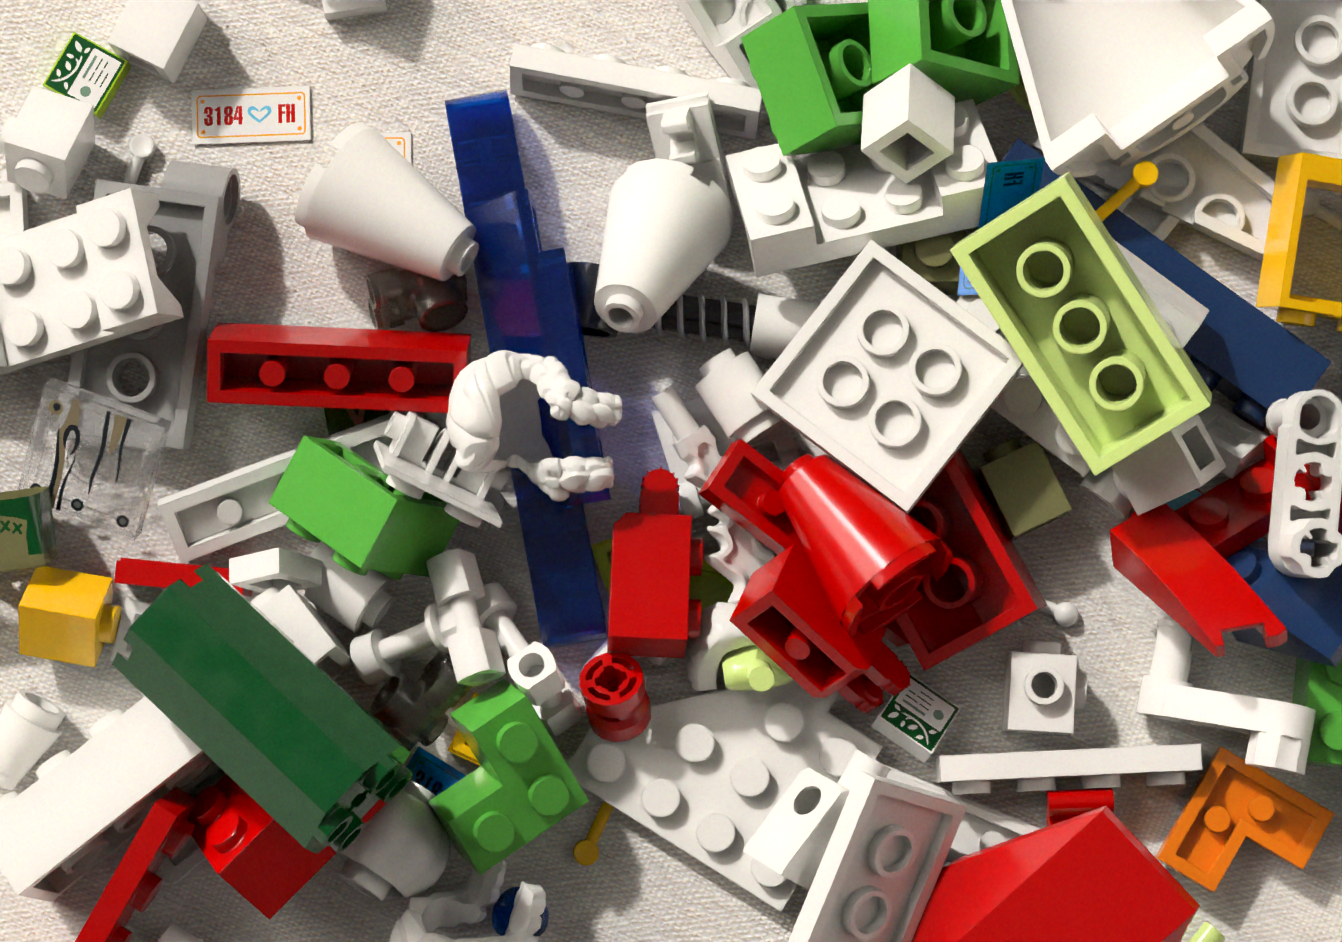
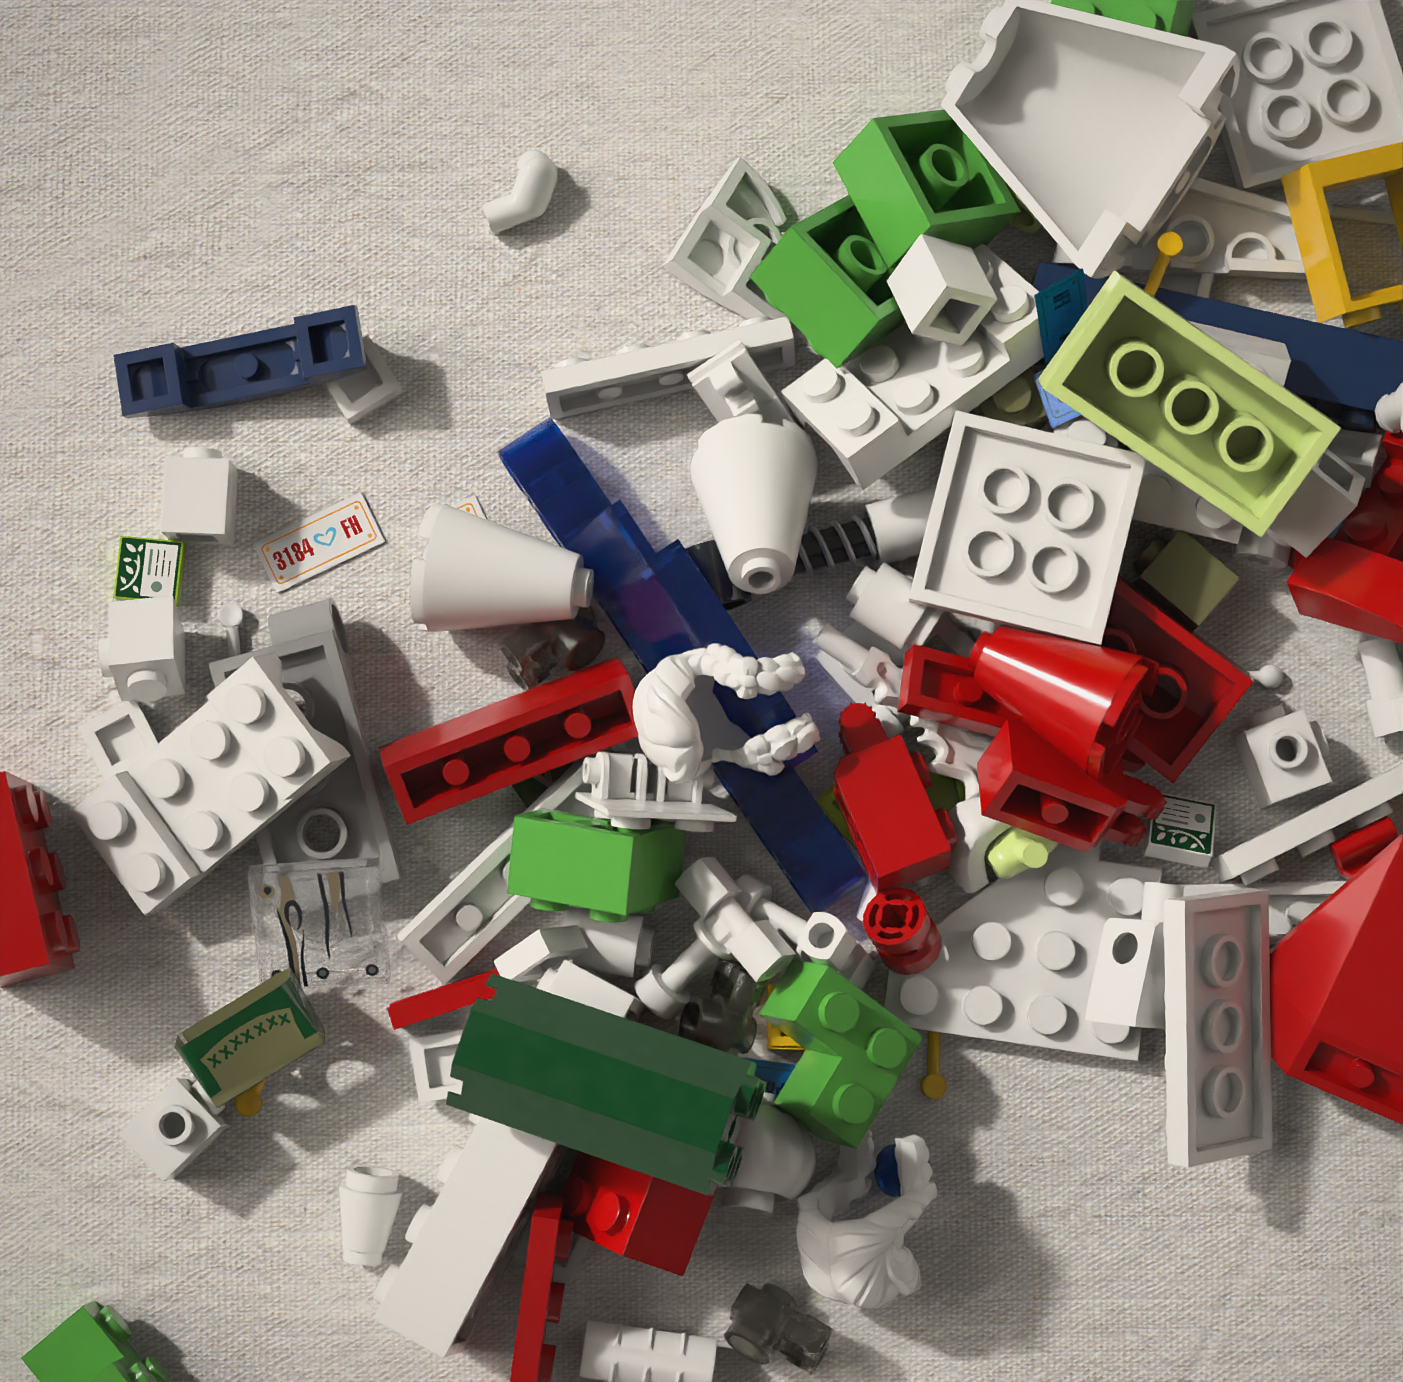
camera: 30 degrees left, 0 degrees up
(67, 616) = (362, 1080): yellow brick -> none

